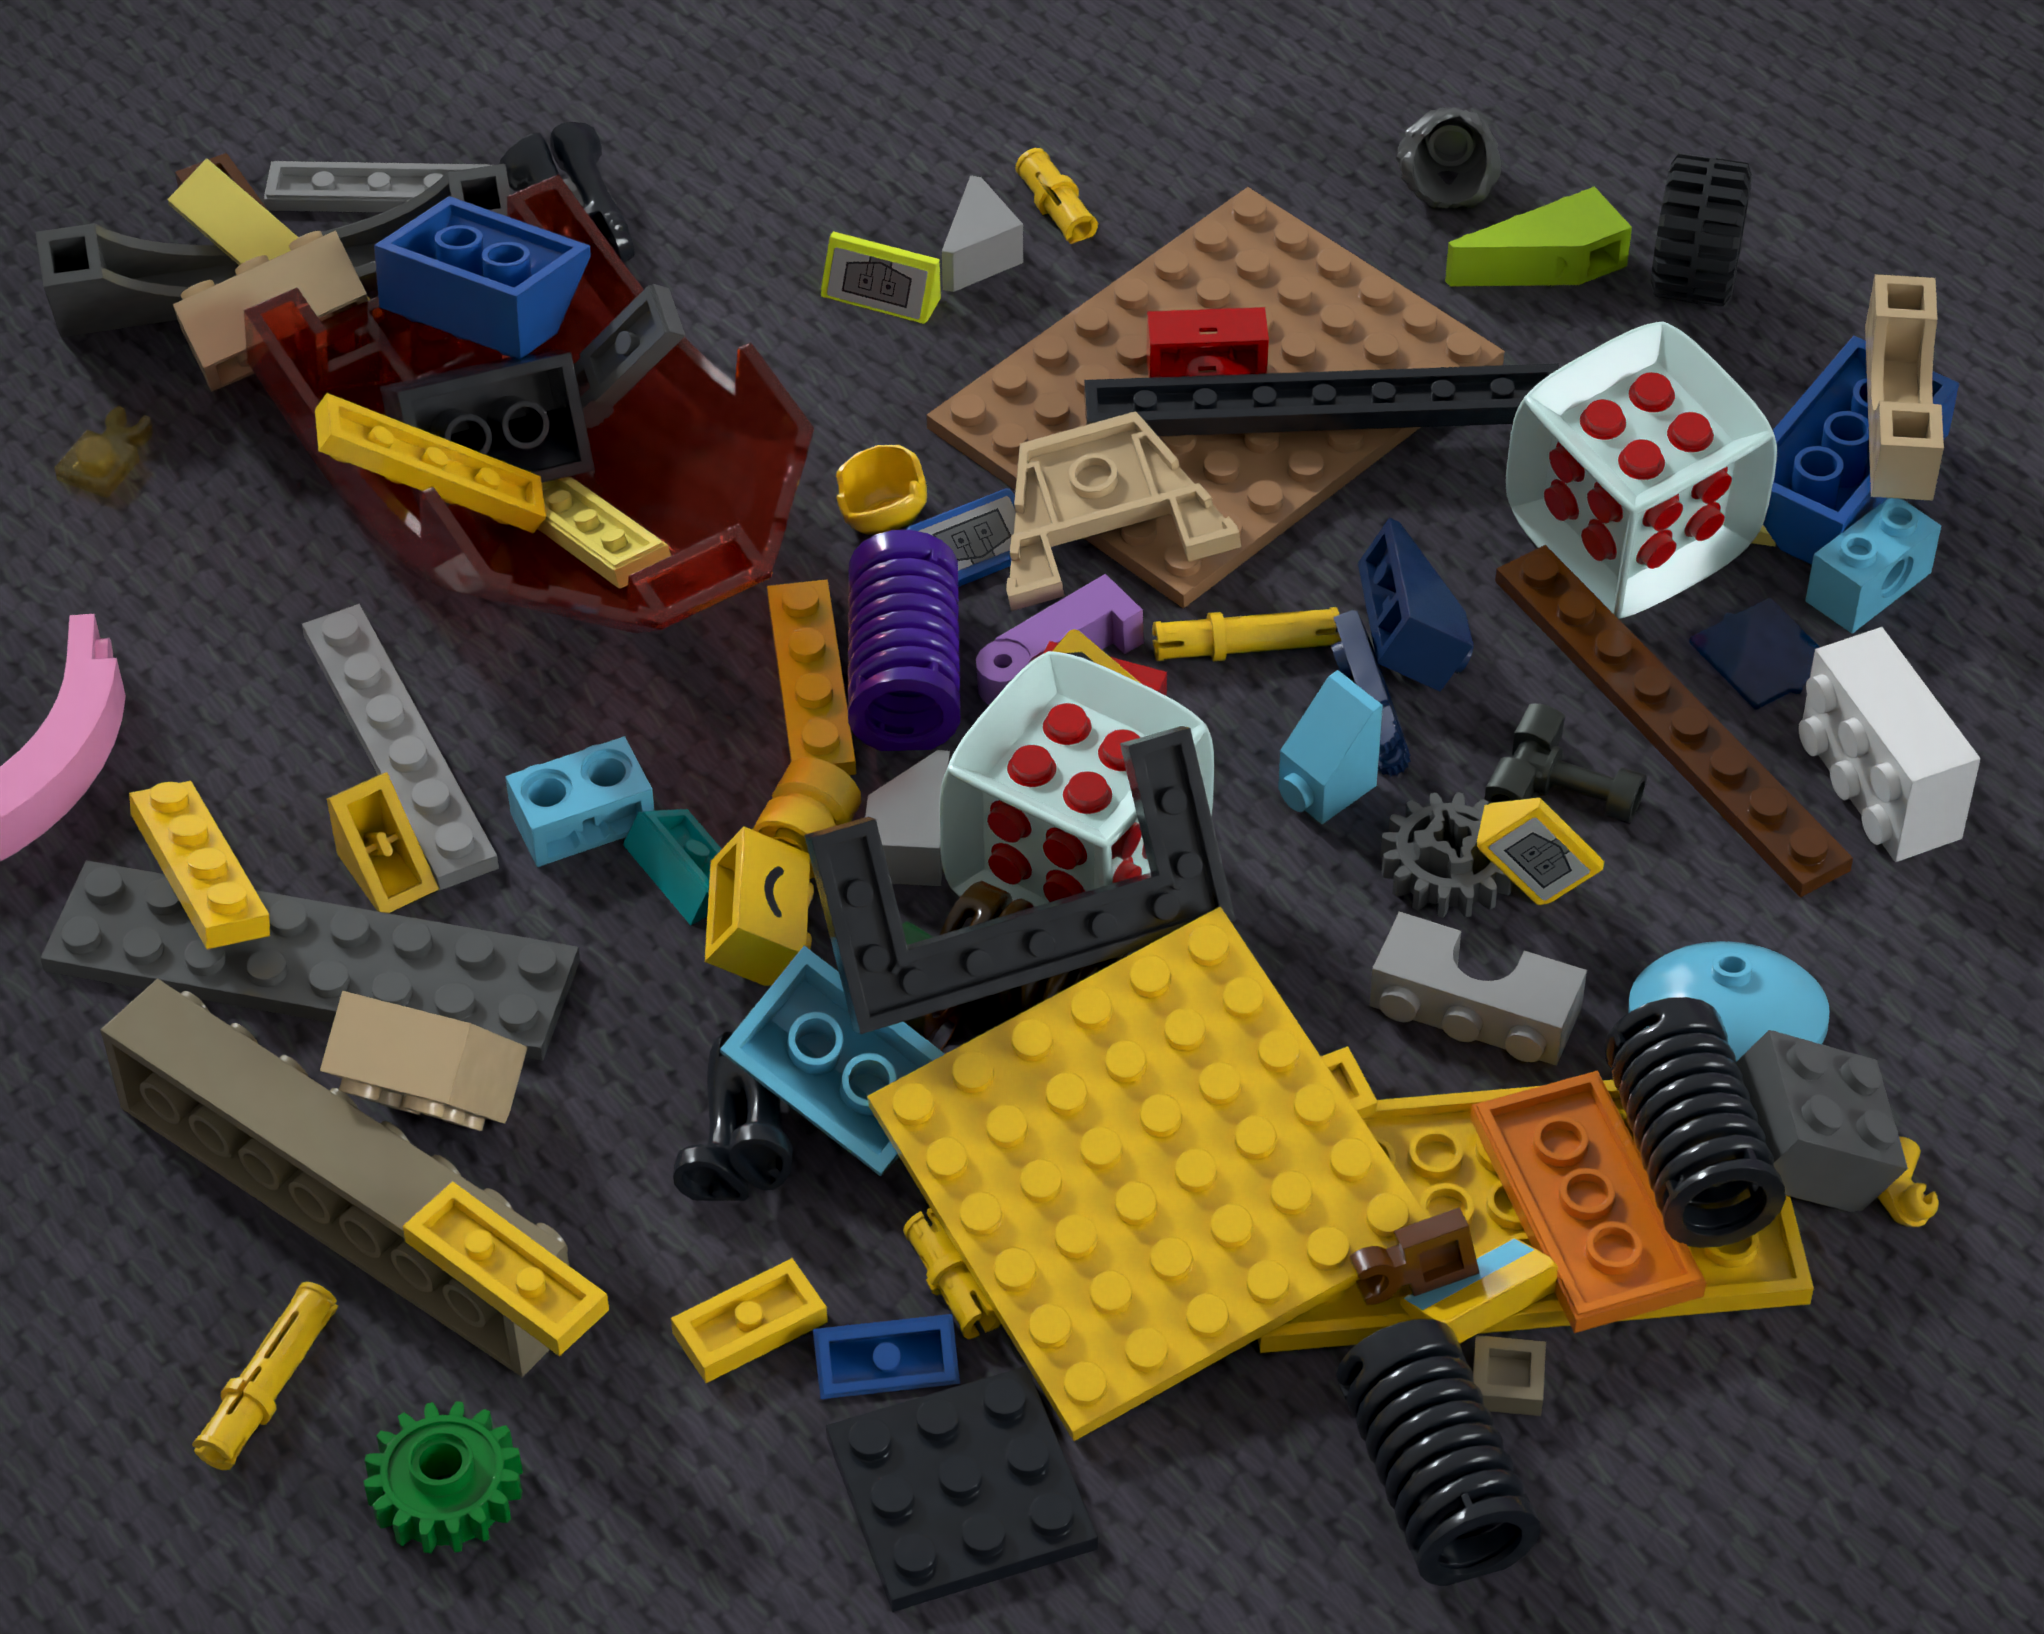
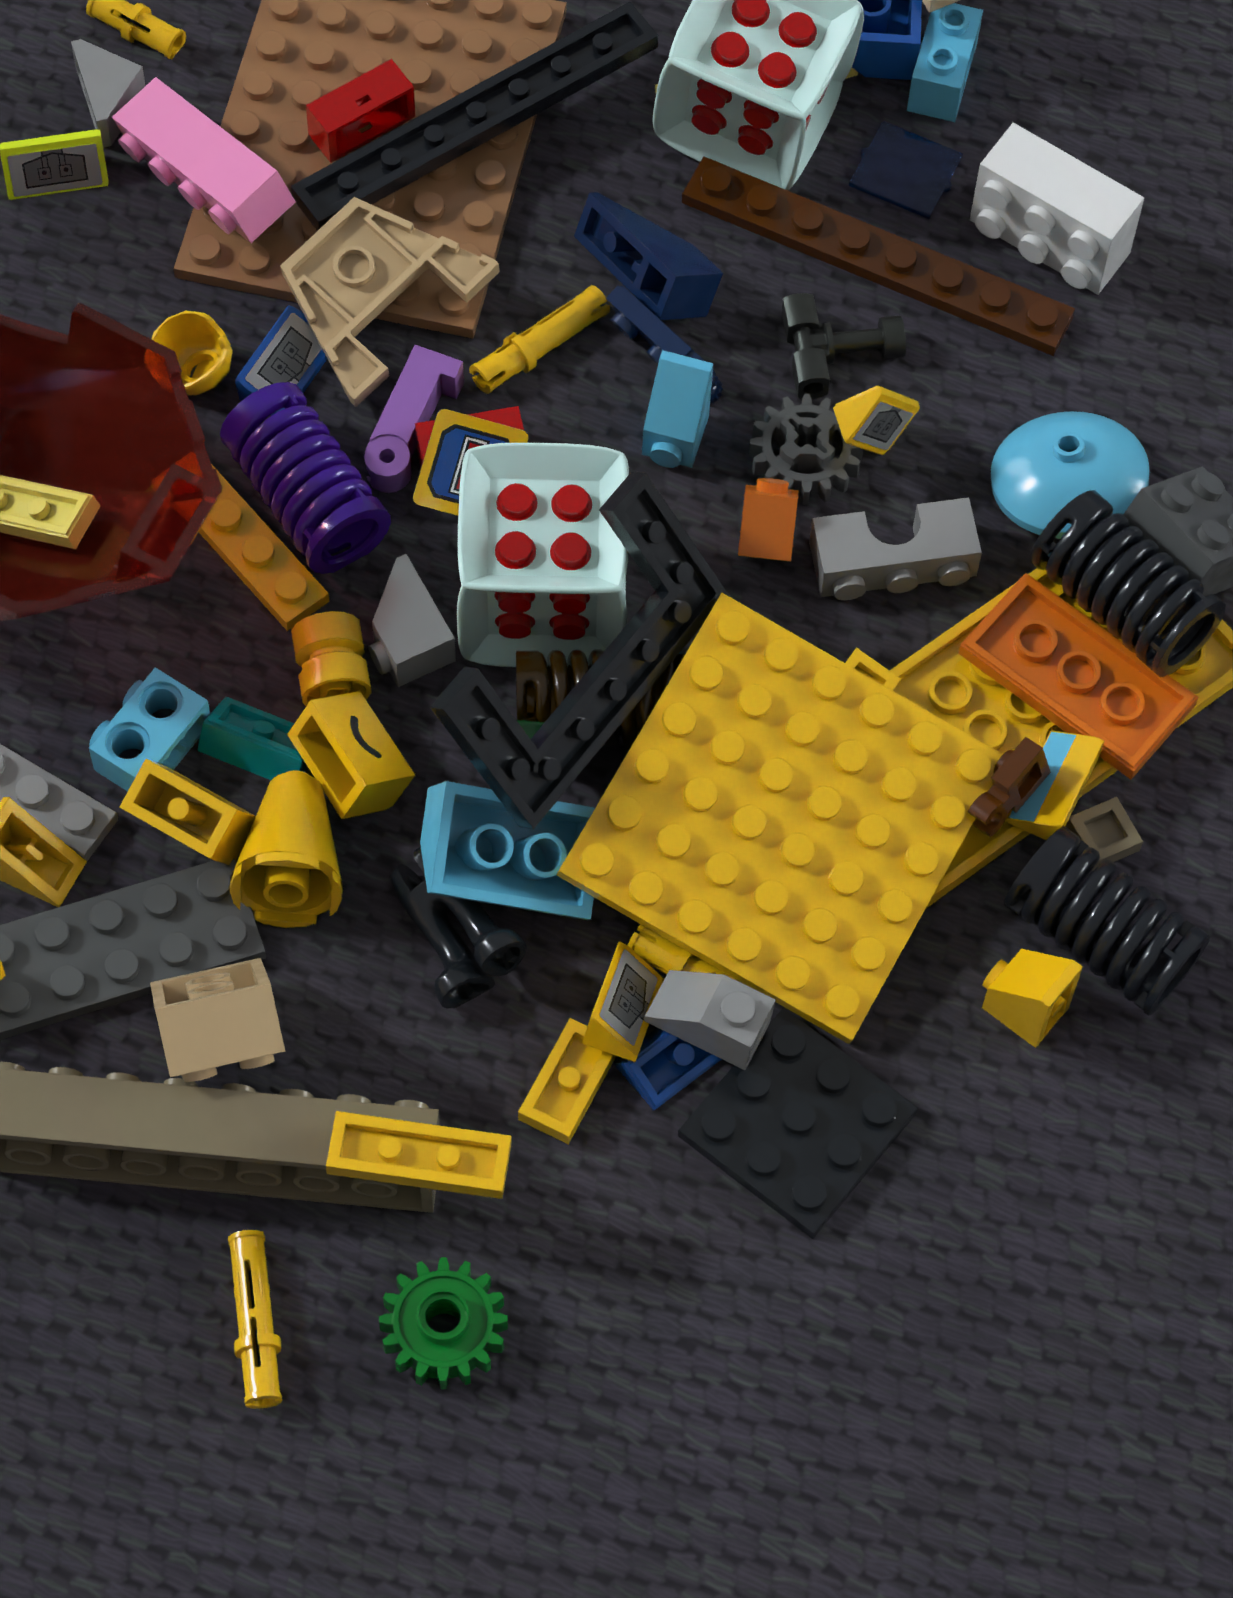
camera: 35 degrees left, 15 degrees up
(557, 880) = (188, 812): none -> yellow brick
(621, 966) = (289, 857): none -> yellow cone
(854, 1270) = (623, 1001): none -> slope
(936, 1325) = (712, 1014): none -> light grey slope
(1014, 326) = (202, 160): none -> bright pink brick
(1301, 1487) = (1031, 992): none -> yellow slope
(1353, 896) = (768, 520): none -> orange brick

